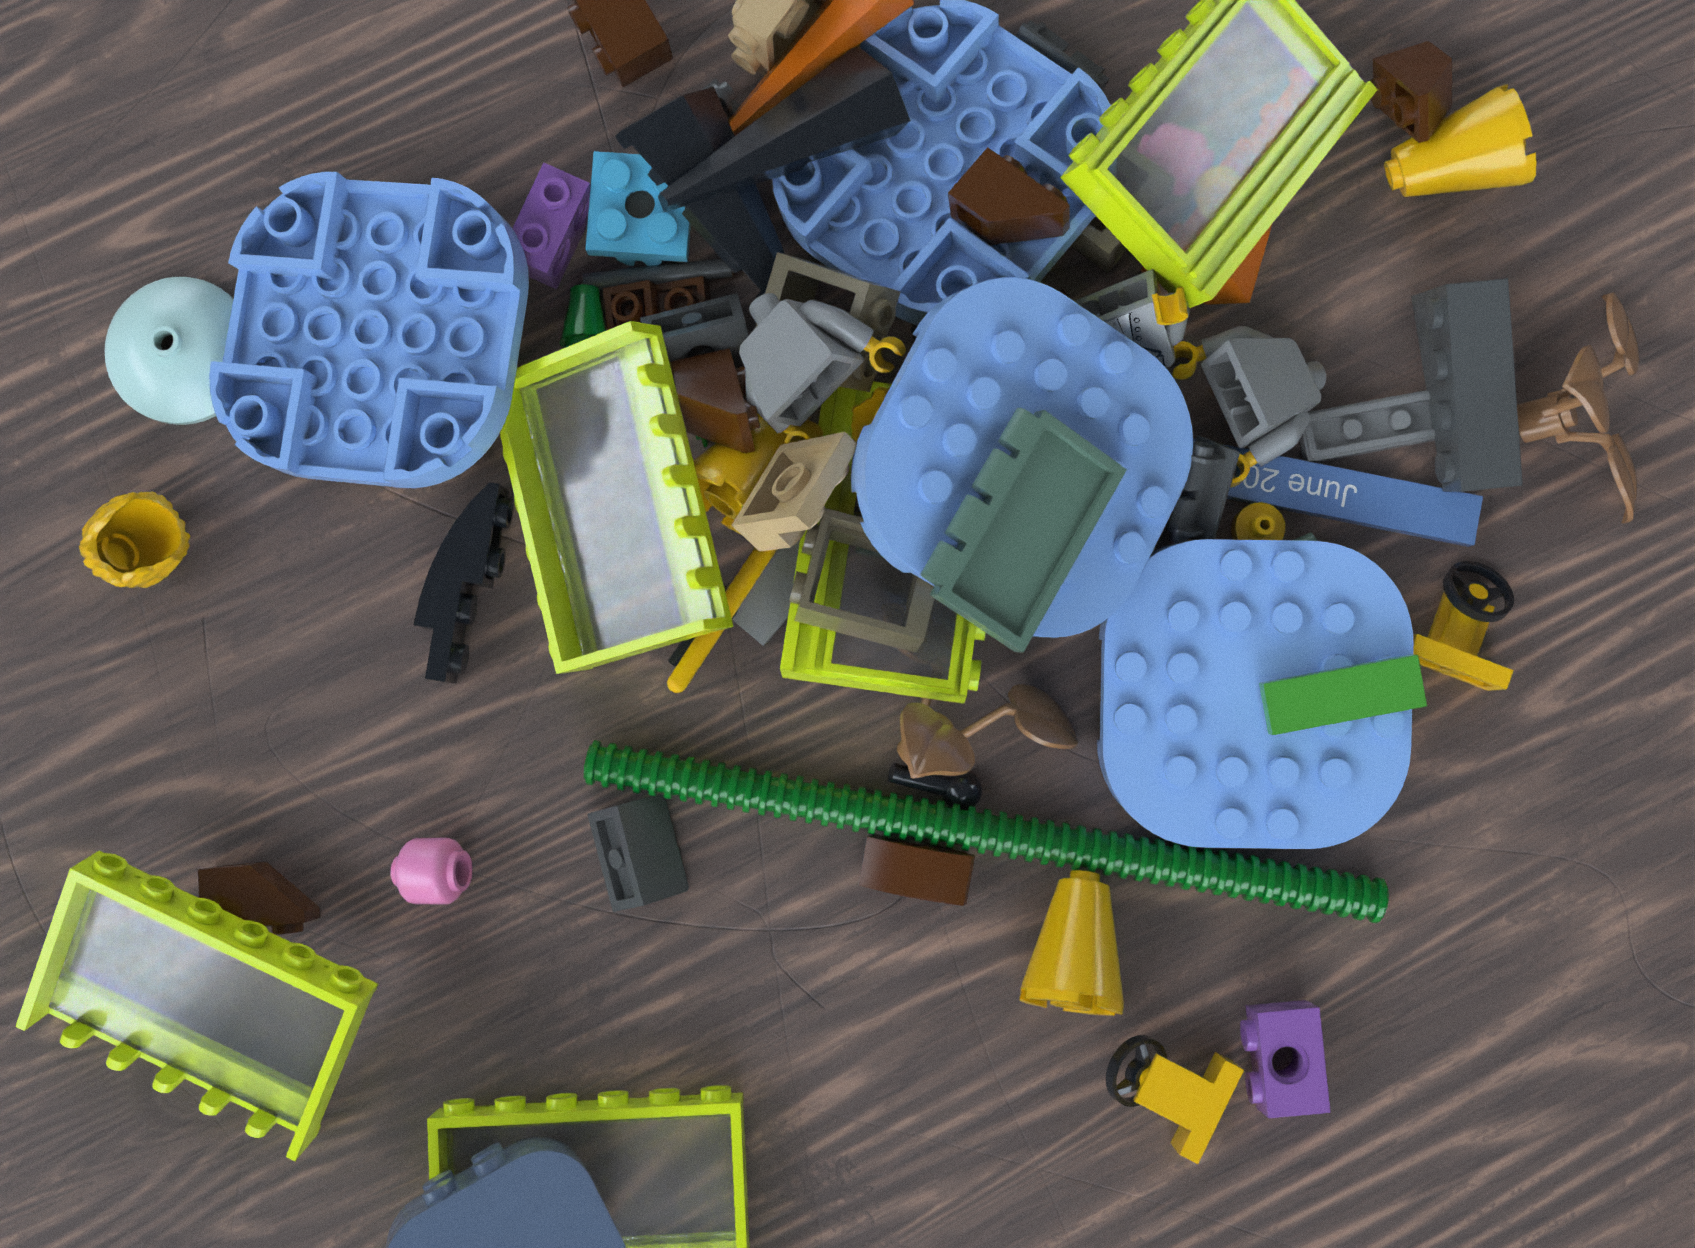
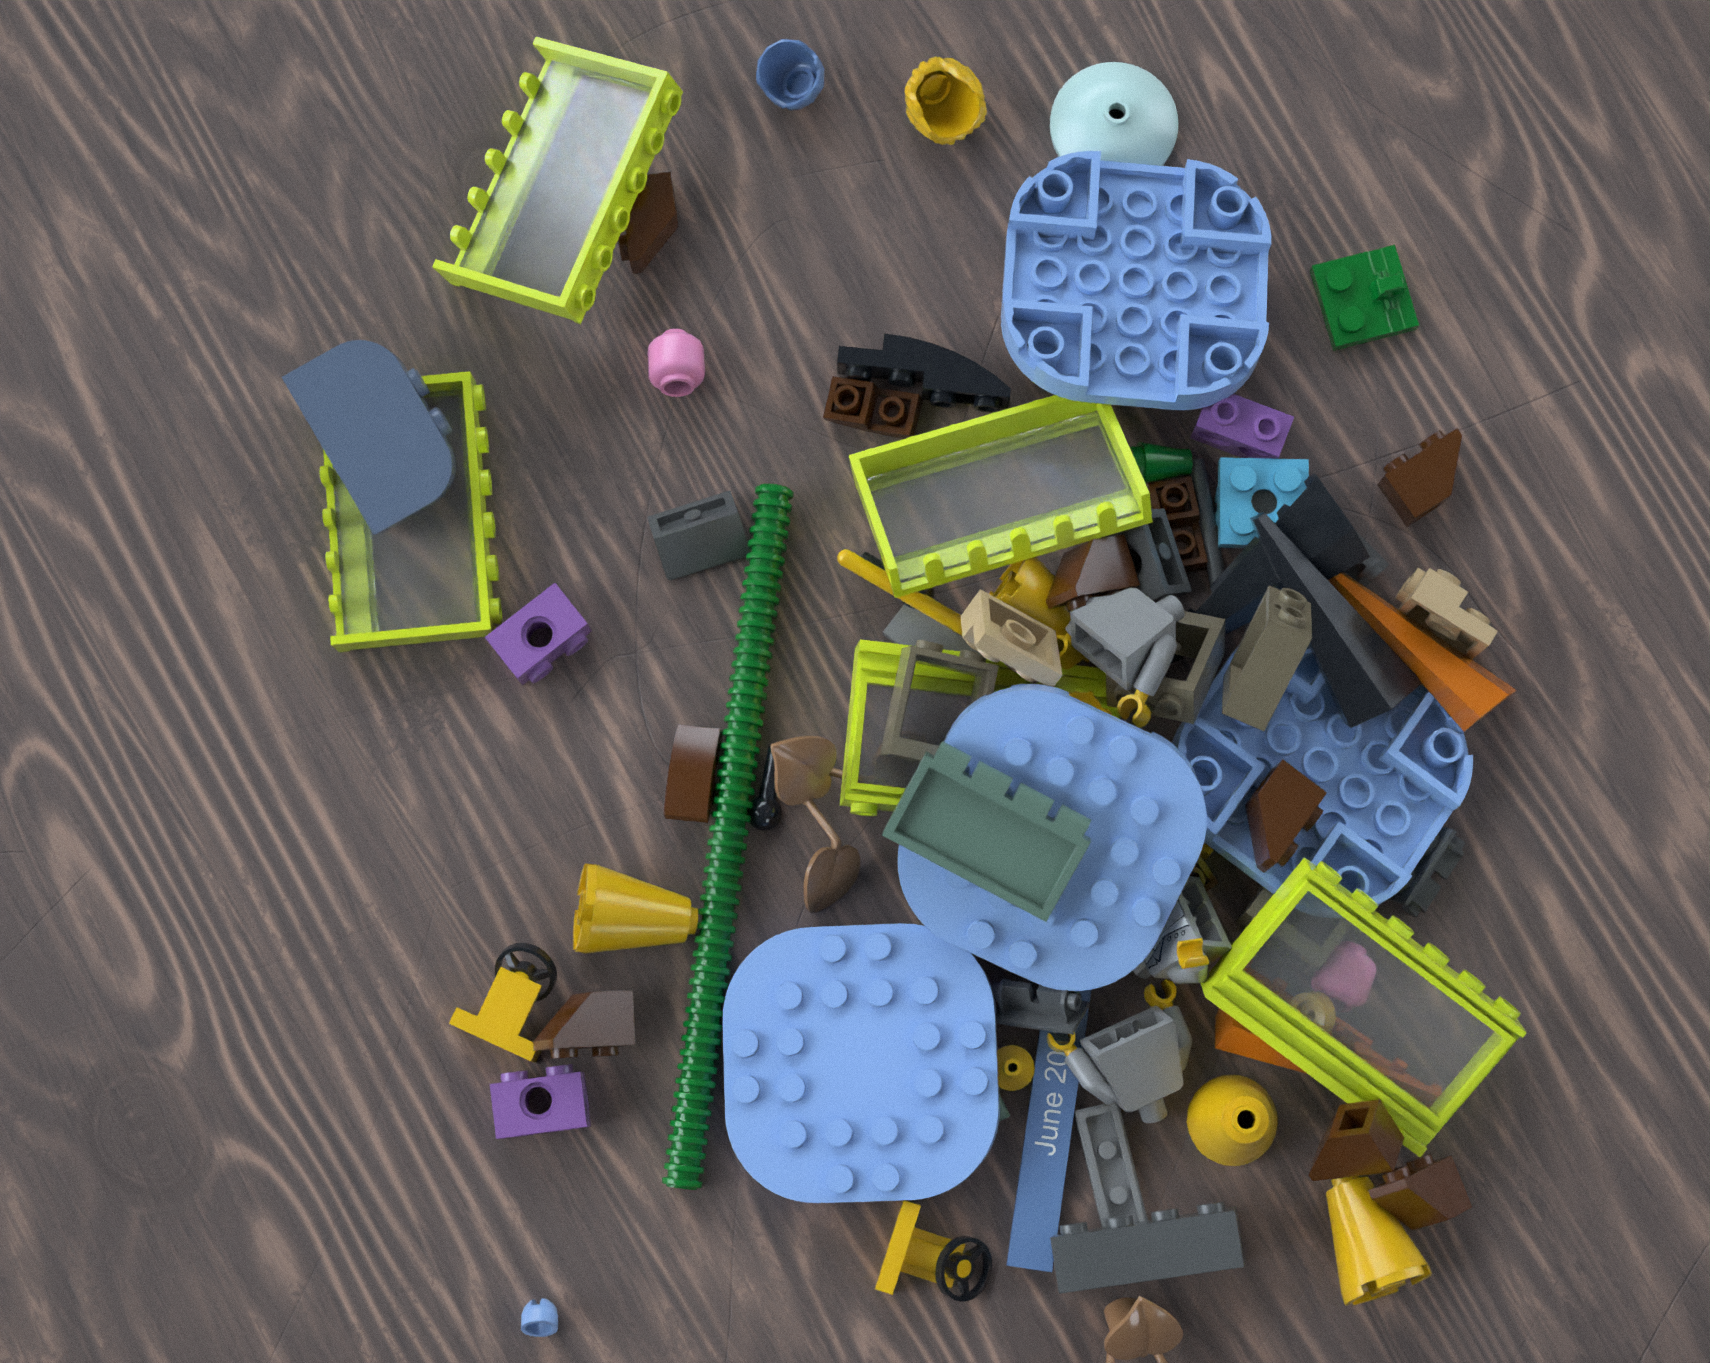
camera: 90 degrees right, 5 degrees down
(88, 721) = (790, 74): none -> medium blue hair
(406, 83) = (1364, 297): none -> green hinge
(500, 644) = (871, 408): none -> reddish brown slope
(750, 1074) = (547, 610): none -> medium lavender brick
(832, 198) = (1267, 657): none -> dark tan window
(1201, 1002) = (592, 1022): none -> slope
(1325, 288) = (1214, 1120): none -> yellow cone
(1343, 694) = (862, 1132): bright green tile -> none
(1365, 154) = (1357, 1142): none -> reddish brown slope
(1519, 1066) = (539, 1319): none -> light blue hinge

